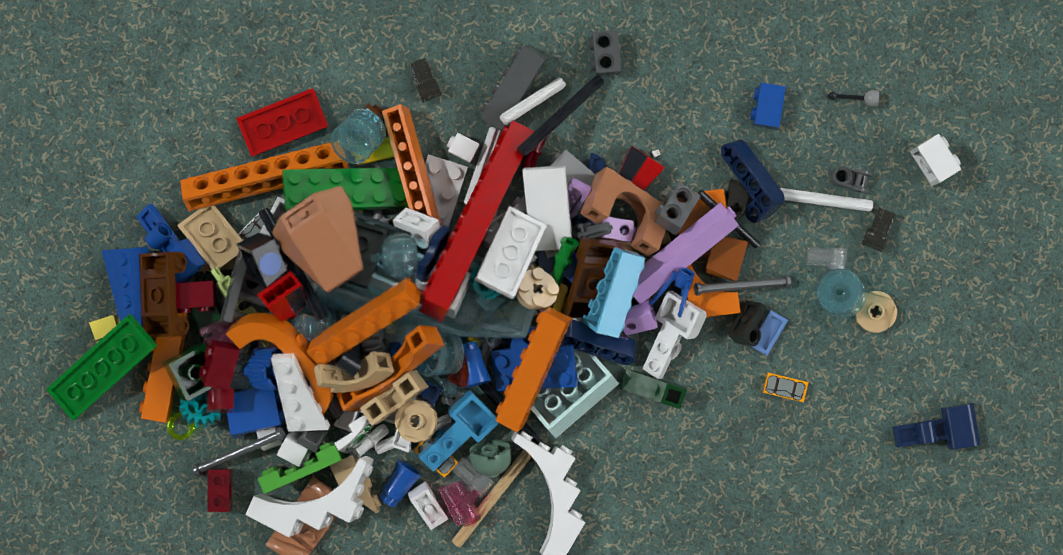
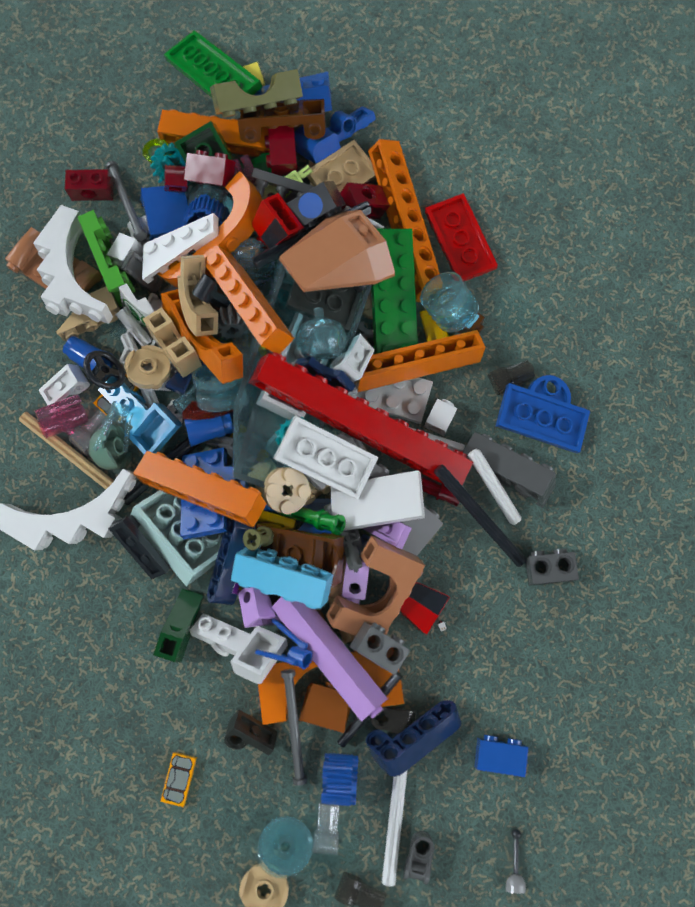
camera: 85 degrees right, 10 degrees down
(136, 292) = (230, 97): none -> olive arch
(244, 216) = (373, 194): none -> dark red brick
(419, 465) = (102, 371): none -> black piece
(459, 448) = (117, 413): none -> clear light blue plant
(463, 51) = (544, 414): none -> blue plate
(576, 316) = (260, 540): none -> olive bush
(583, 426) = (139, 547): none -> black hinge
(595, 163) = (428, 558): dark blue tile -> none
(770, 331) = (242, 760): medium blue tile -> none
(786, 245) = (339, 779): none -> blue brick

